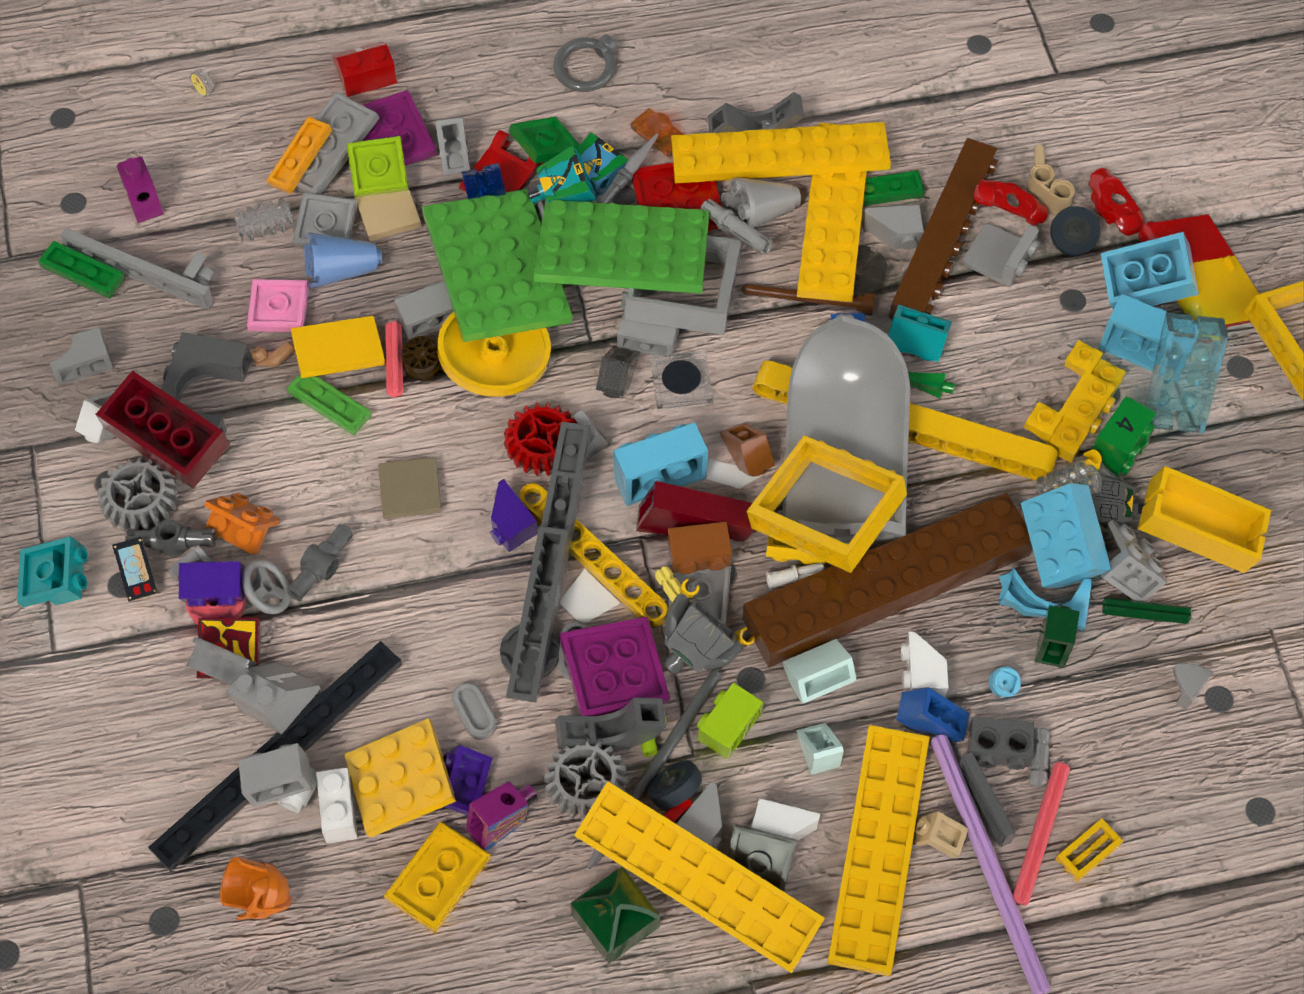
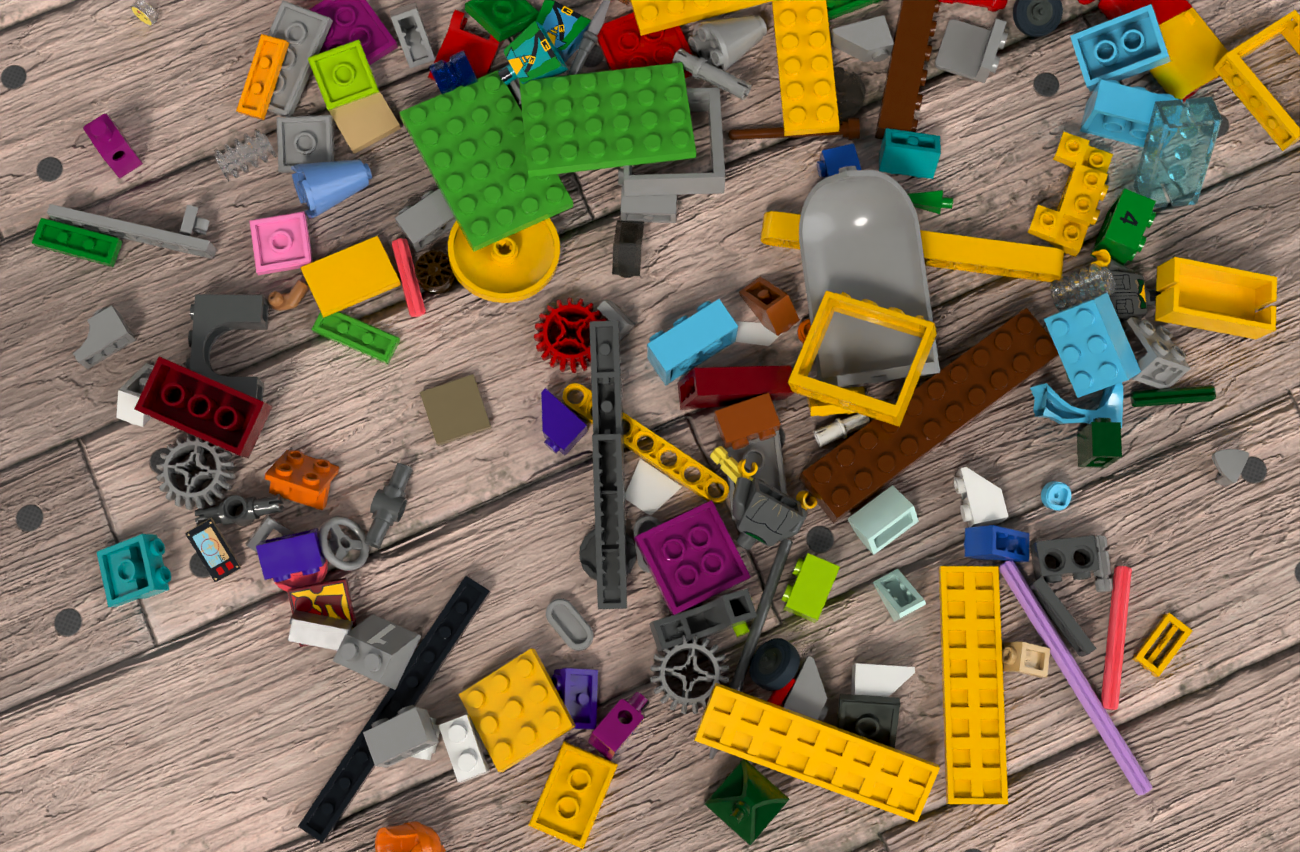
camera: 10 degrees left, 15 degrees up
(681, 379) = (690, 244): clear tile -> none

